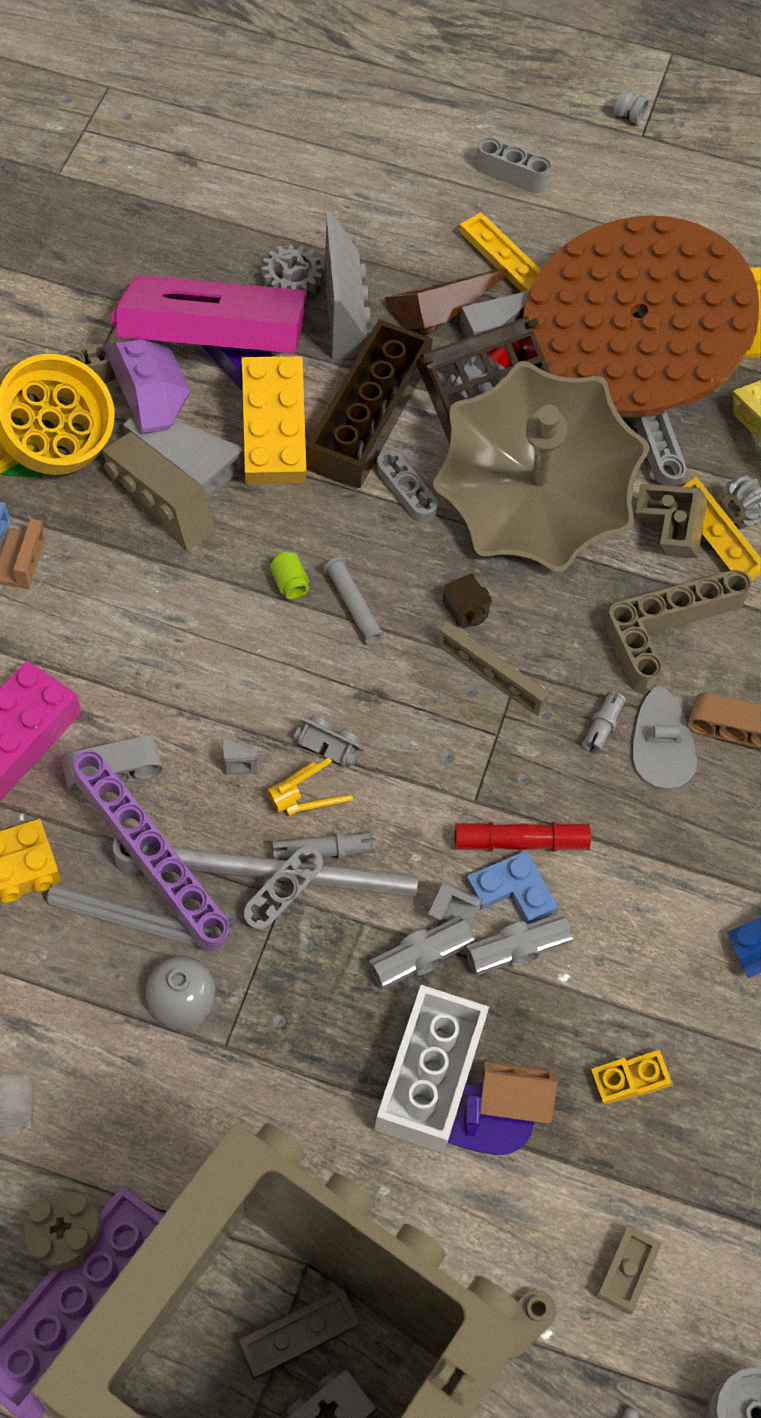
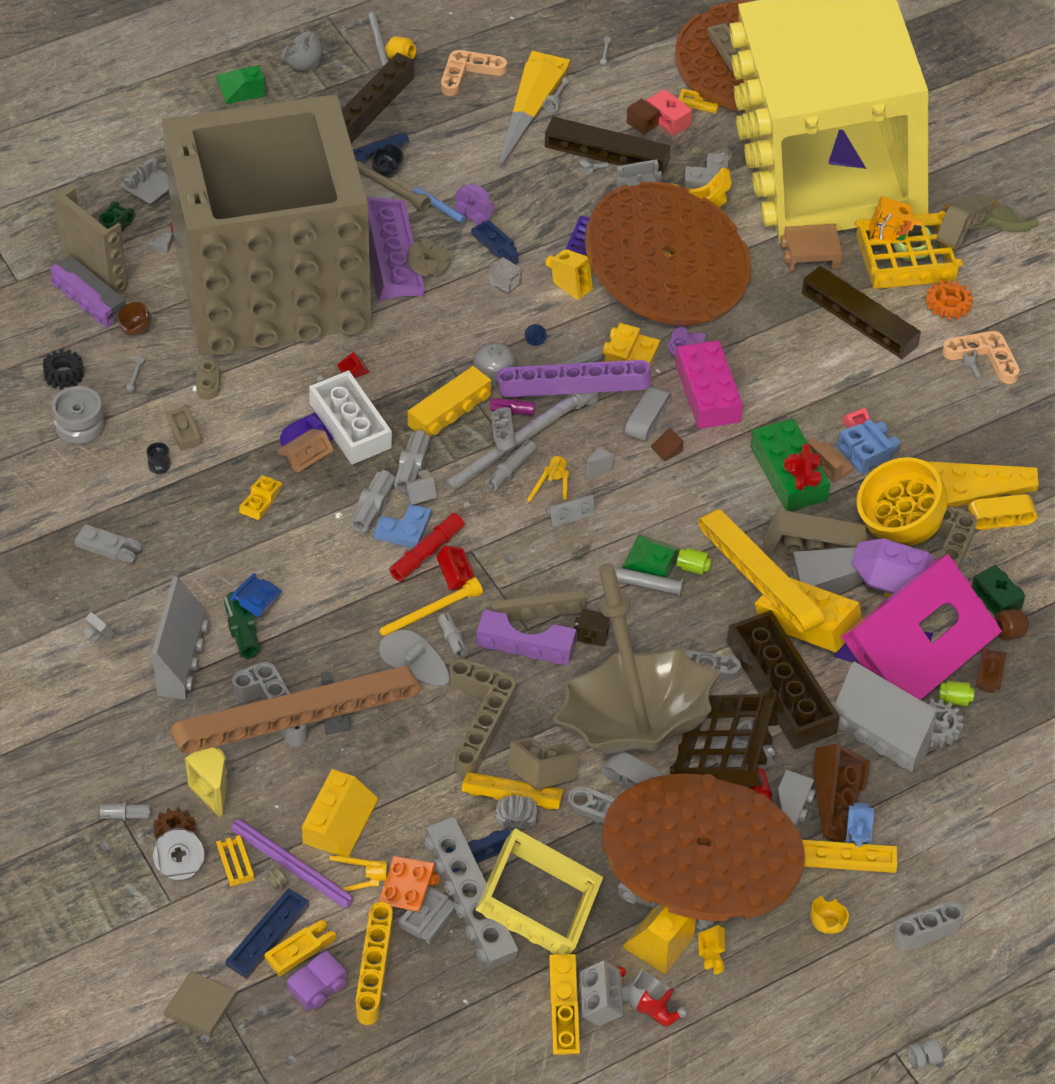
camera: 135 degrees right, 10 degrees down
(68, 576) = (771, 447): none -> green brick
(80, 311) = (997, 590): none -> dark green brick
(87, 986) = (535, 334): none -> dark blue plate
(88, 523) = (802, 465): none -> red hips
(112, 279) = (1012, 624): none -> reddish brown head
(141, 716) = (668, 445): none -> reddish brown slope
(189, 261) = (991, 670): none -> reddish brown hips
(238, 926) = (515, 406): none -> magenta axle
(239, 271) = (956, 692): none -> lime brick
(265, 484) = (761, 571): none -> yellow beam
(298, 979) = (450, 402): none -> yellow brick
(317, 618) = (651, 557): none -> green slope
(332, 1157) = (354, 364): none -> red slope
(472, 252) = (860, 824): none -> medium blue hips
(515, 791) = (454, 567): none -> red slope
(523, 619) = (552, 645): none -> medium lavender arch
(533, 750) = (470, 589): none -> yellow piece
(576, 223) = (828, 916): none -> yellow hair
(708, 1241) = (158, 458): none -> black wheel

